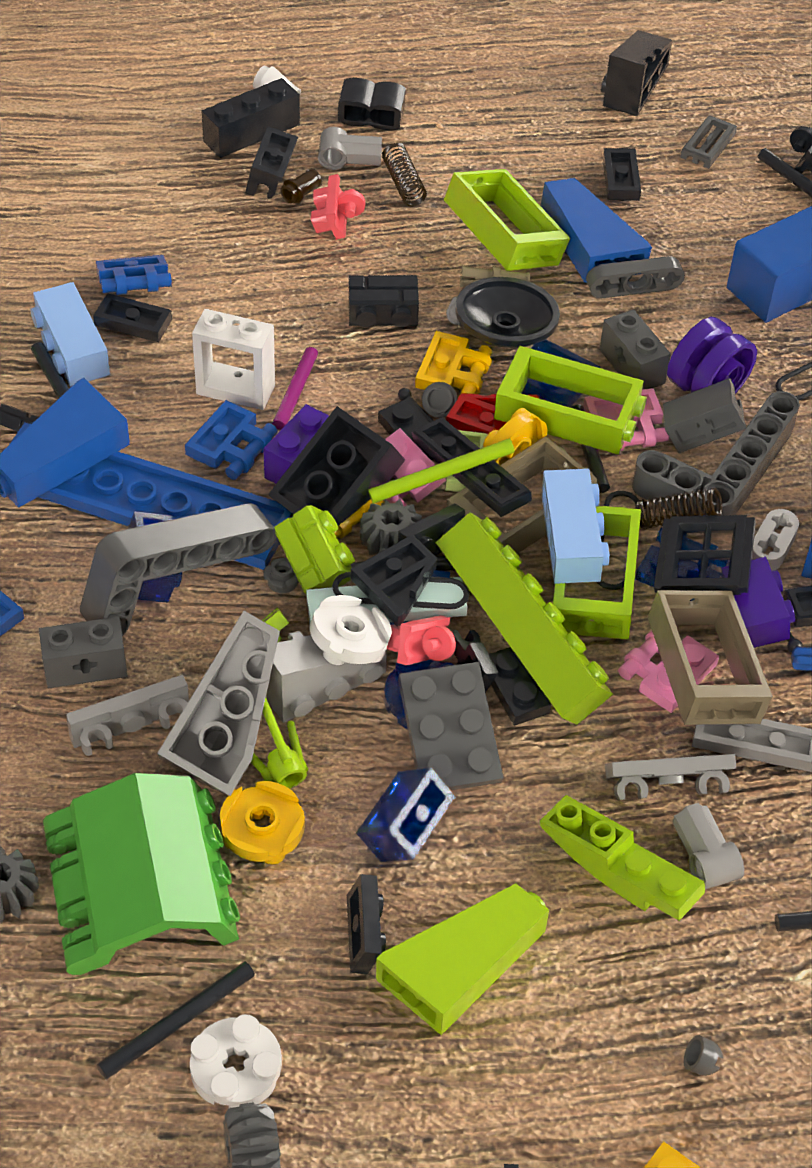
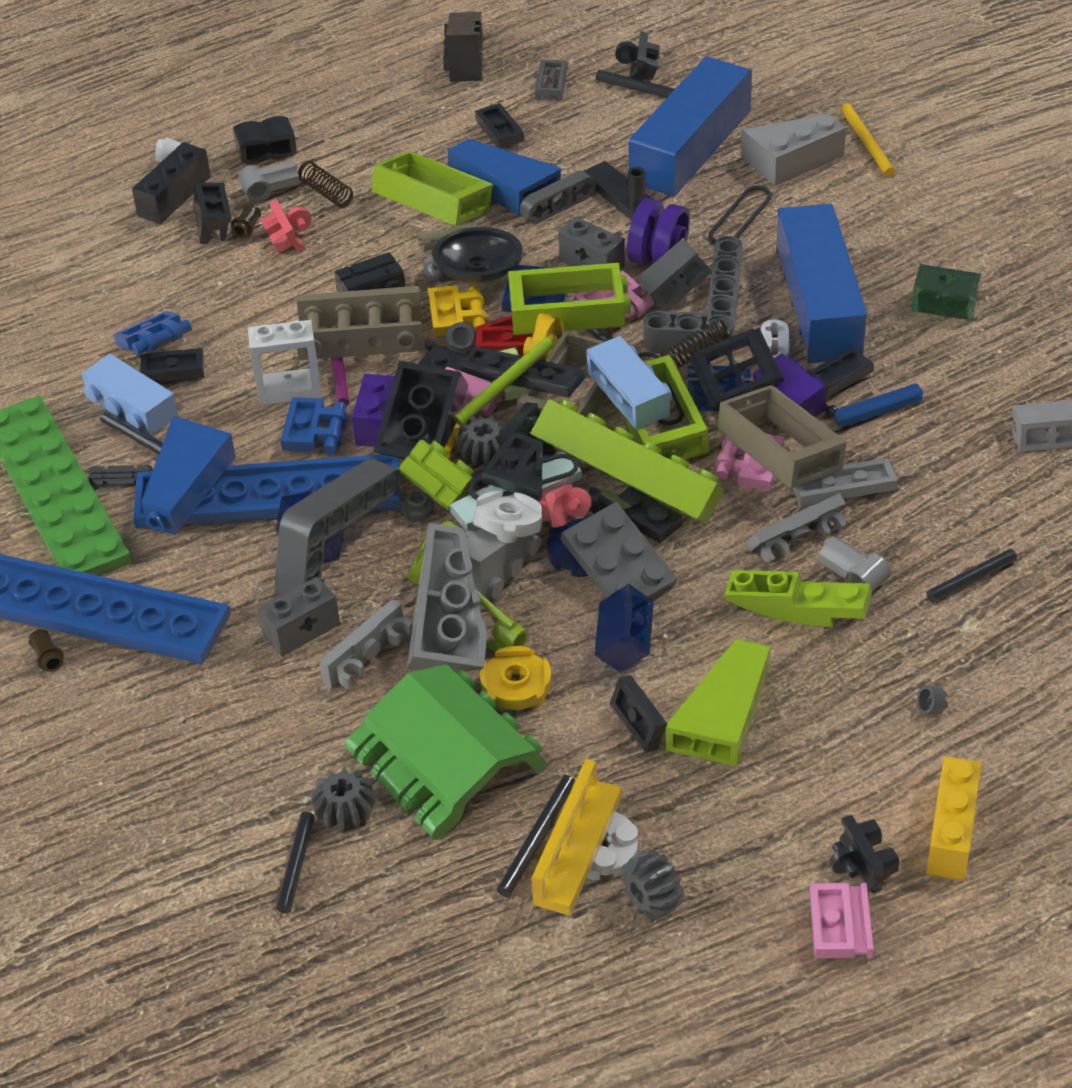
camera: 20 degrees left, 5 degrees down
(197, 1051) = (575, 841): none -> yellow fence
(352, 324) = (363, 307): none -> dark tan fence
(708, 290) = (617, 189): none -> black piece

